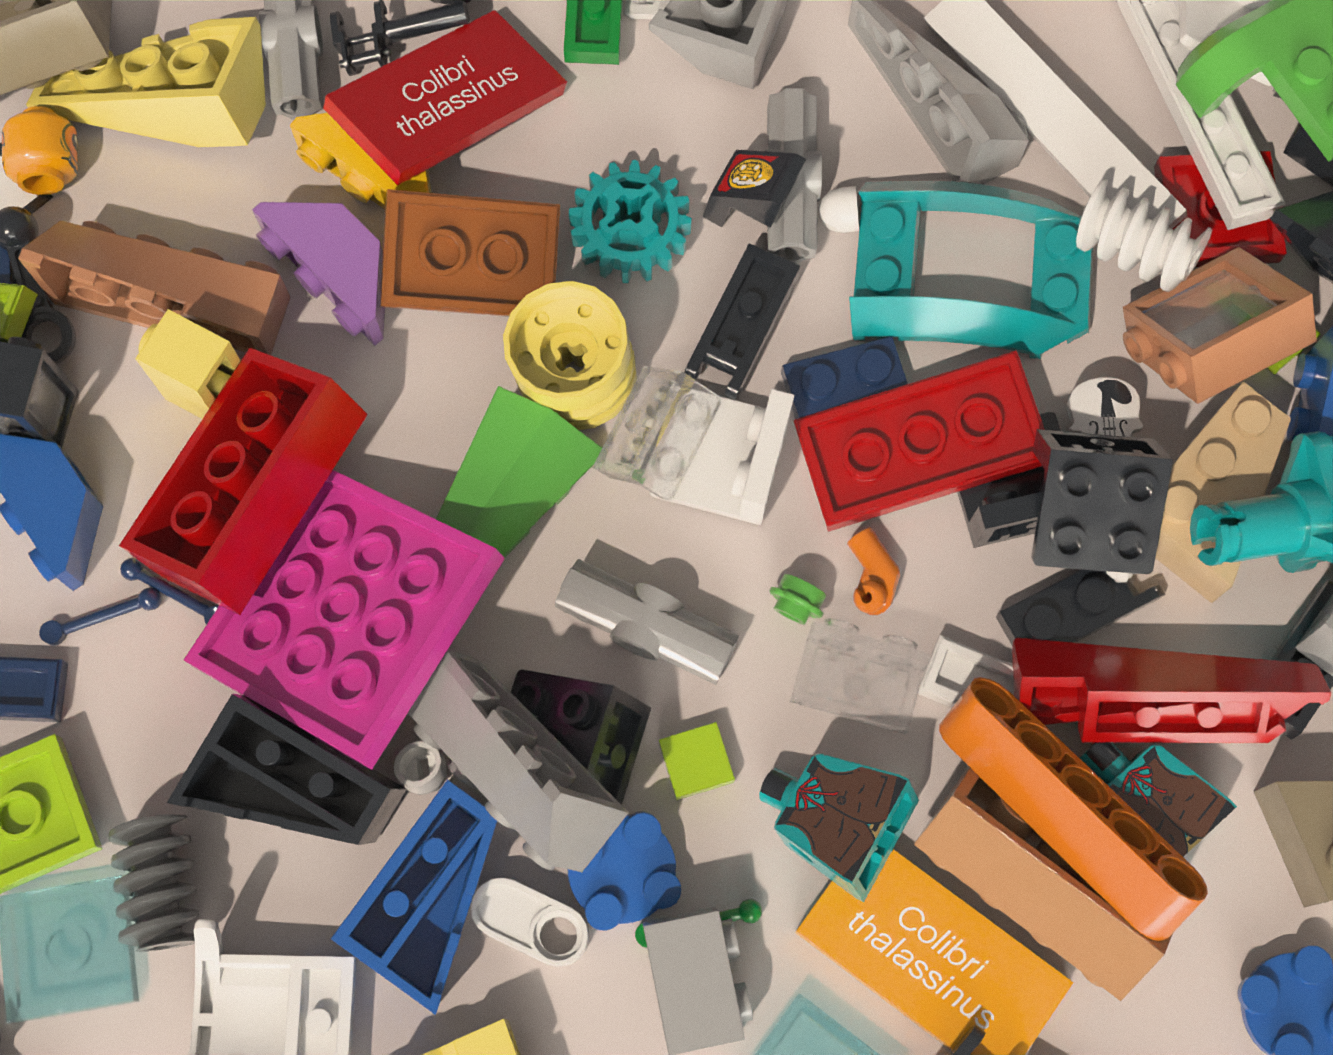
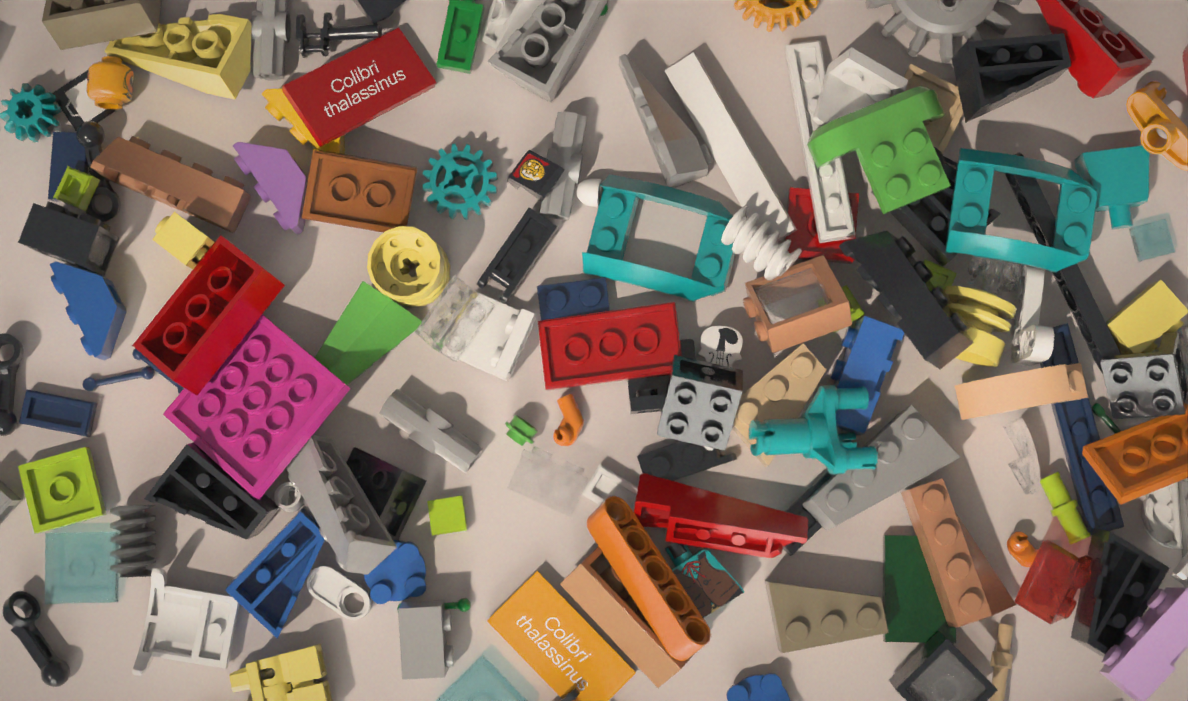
camera: 15 degrees right, 10 degrees up
(841, 817) = (520, 563): torso -> none

